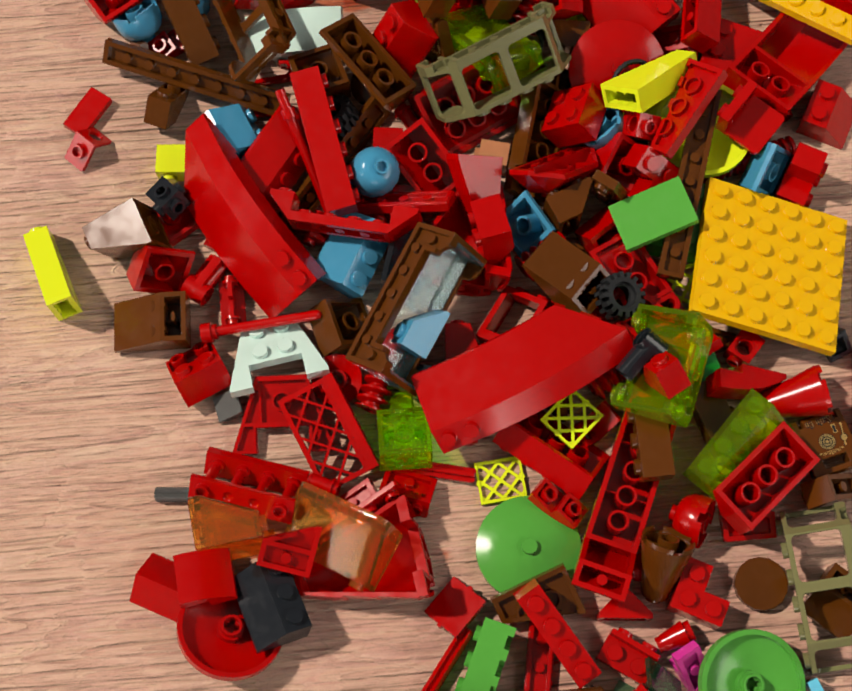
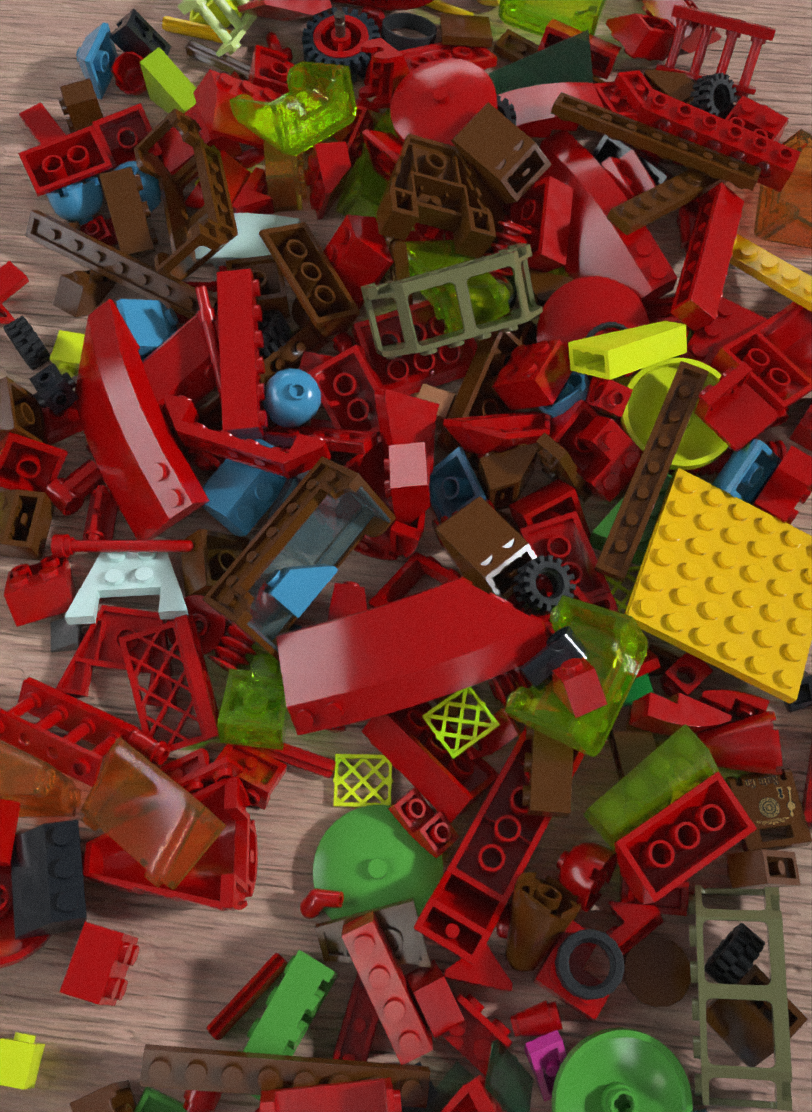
camera: 10 degrees right, 5 degrees down
(131, 160) = (27, 342): none -> black tyre
(290, 551) = (82, 819): red wing -> none
(329, 659) = (100, 965): none -> red brick
(455, 607) = (273, 928): red piece -> none
(486, 579) = (318, 899): none -> red arm
(594, 635) = (435, 998): none -> red slope
(653, 214) = (603, 497): bright green tile -> none
(693, 97) = (671, 375): red wing -> none
(721, 568) = (615, 958): none -> black tyre
(738, 551) = (636, 923): none -> red slope
(787, 362) = (740, 703): none -> red slope
(818, 559) = (734, 955): none -> black tyre

